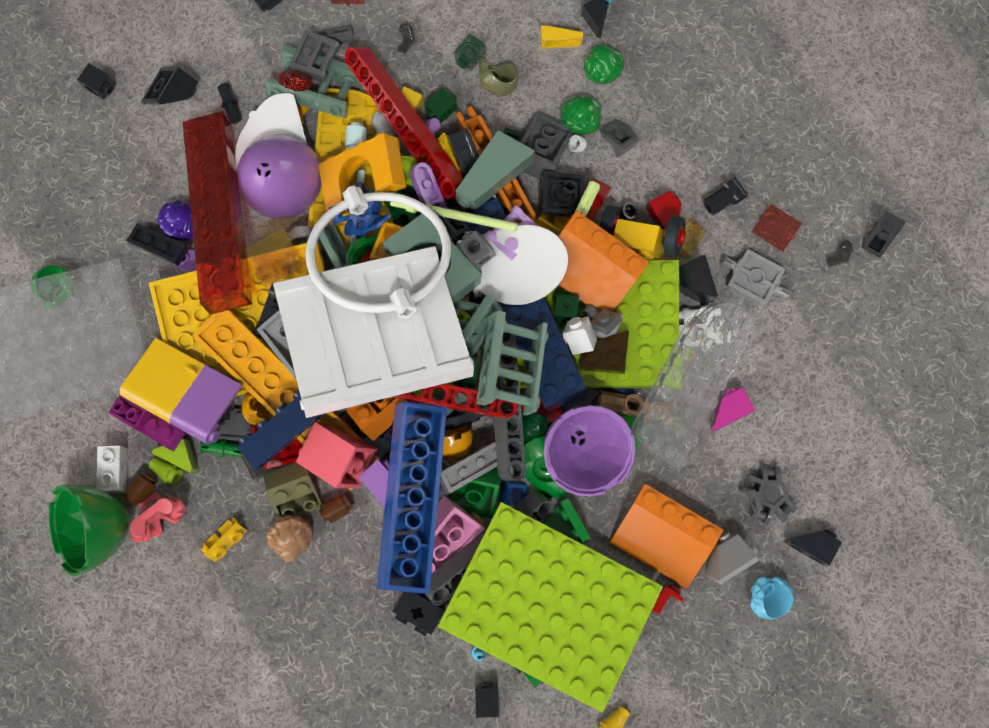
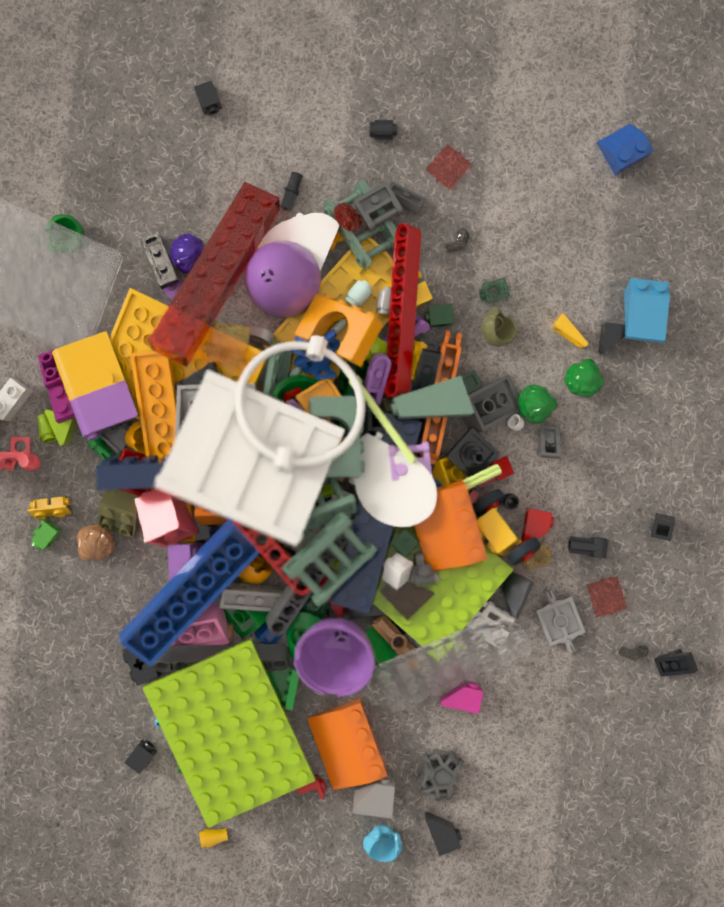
camera: 35 degrees right, 10 degrees up
(139, 488) = (19, 427): reddish brown brick -> none
(170, 86) = (256, 145): black slope -> none
(238, 567) = (45, 534): none -> bright green brick
(335, 508) = (139, 548): reddish brown brick -> none
(483, 255) = (377, 461): dark grey brick -> none
(772, 130) = (663, 526): none -> black brick

